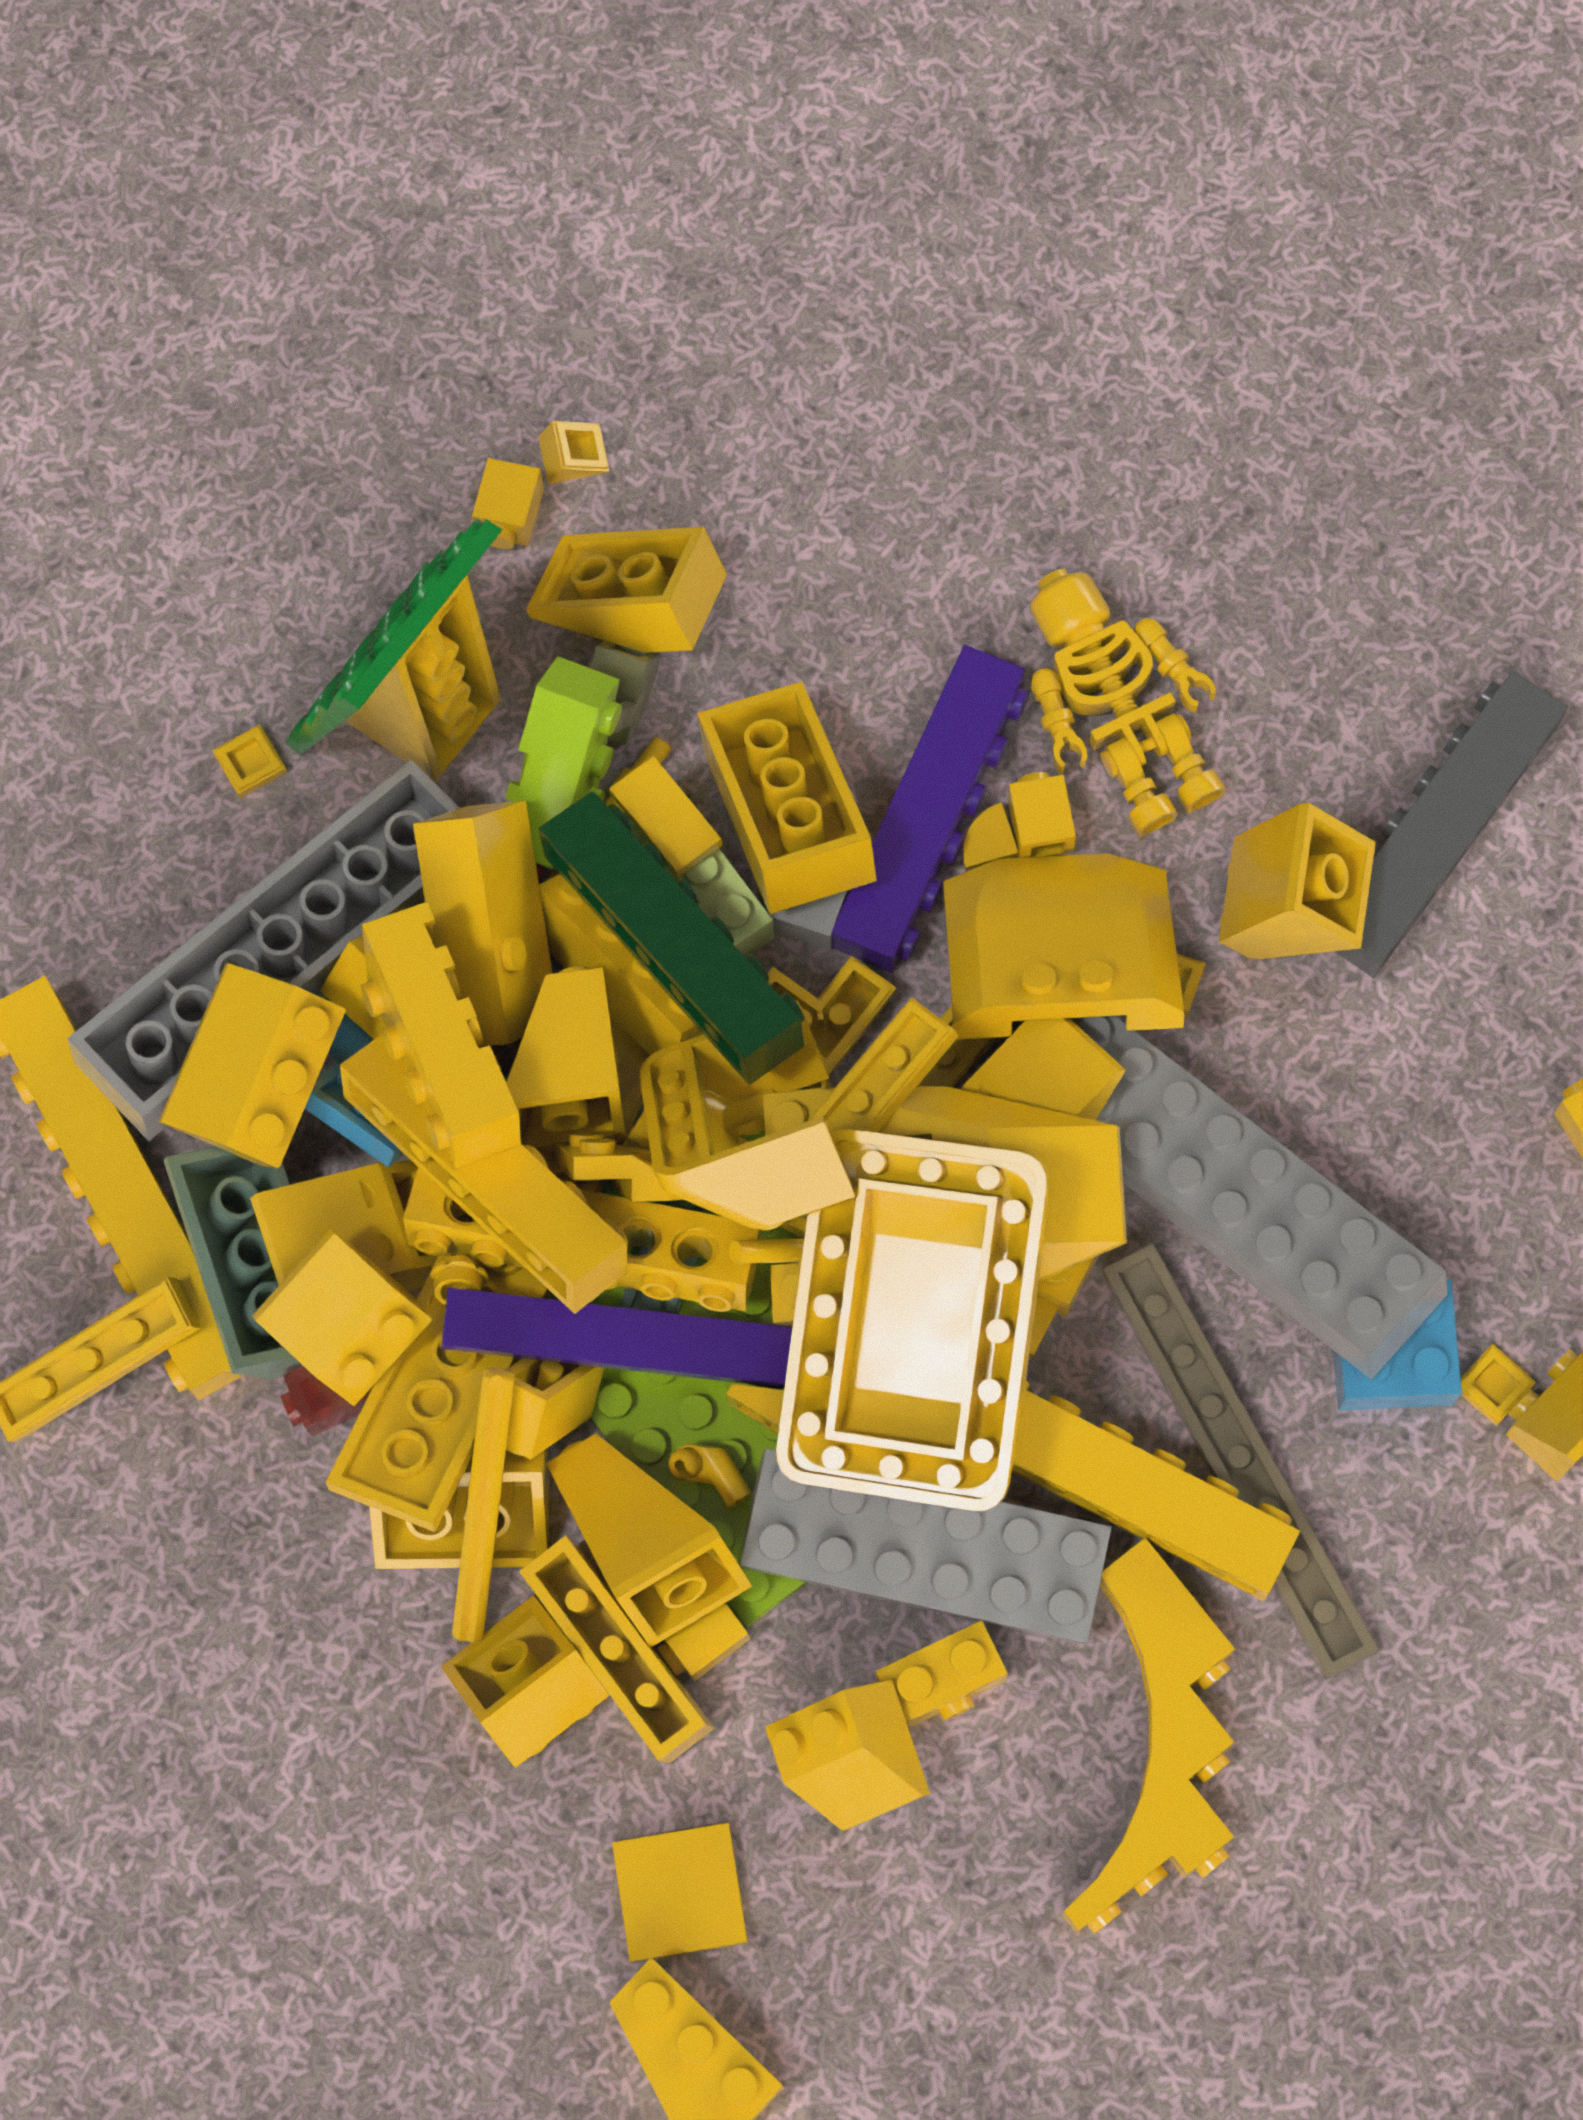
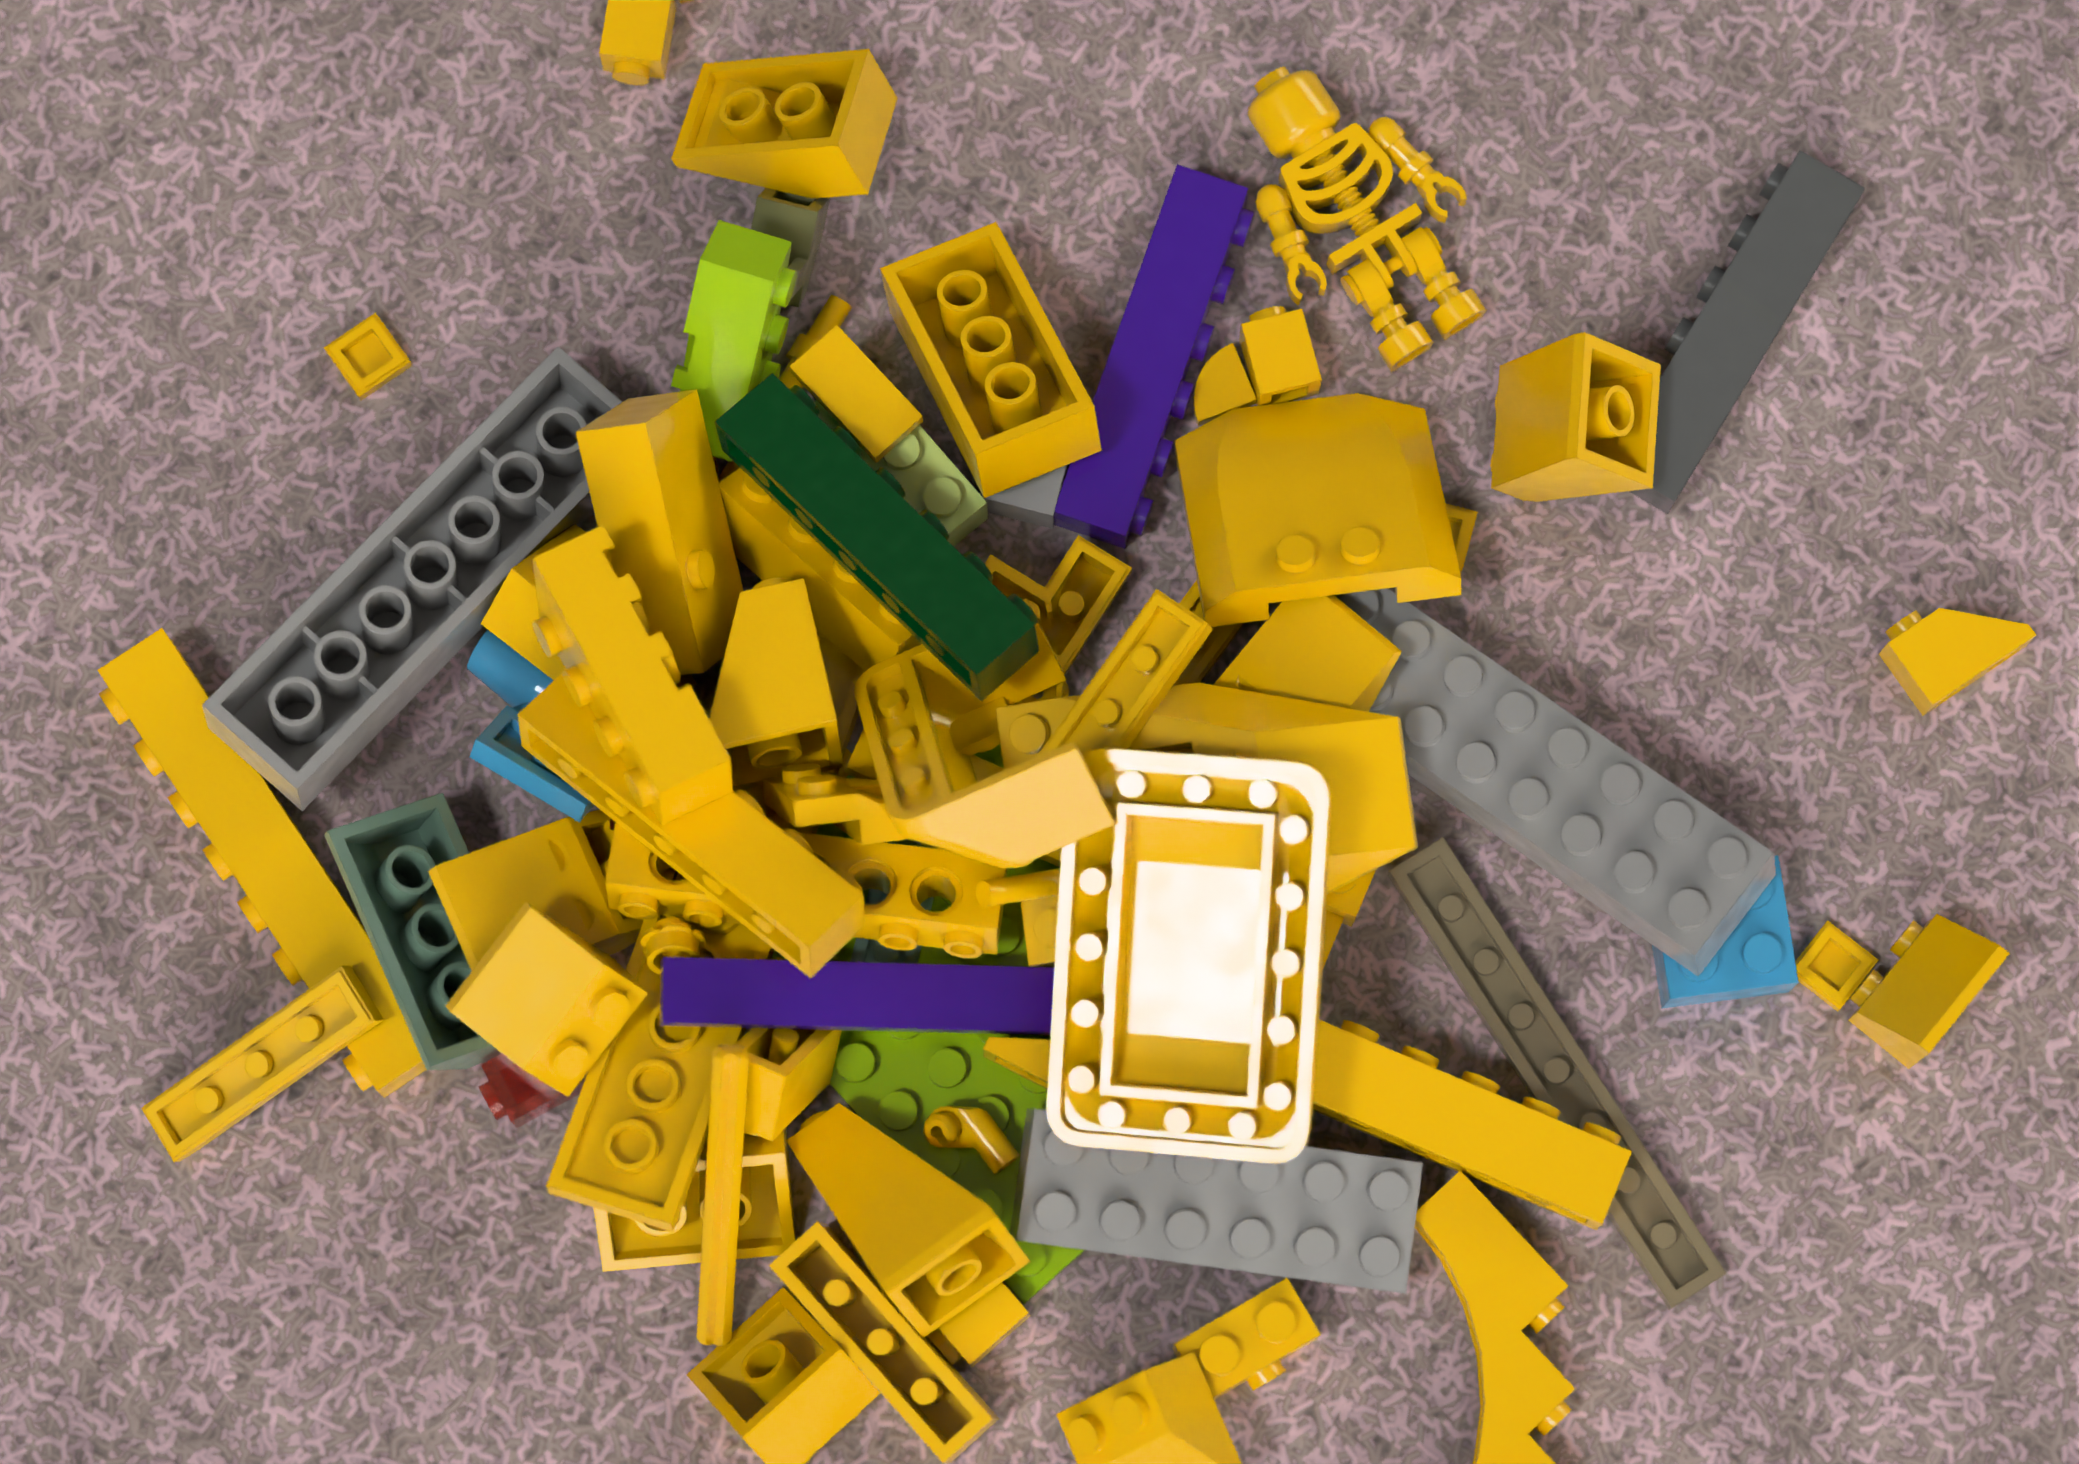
camera: 10 degrees left, 5 degrees up
(252, 1065) = (416, 720): yellow slope -> none
(422, 672) = (557, 238): piece -> none

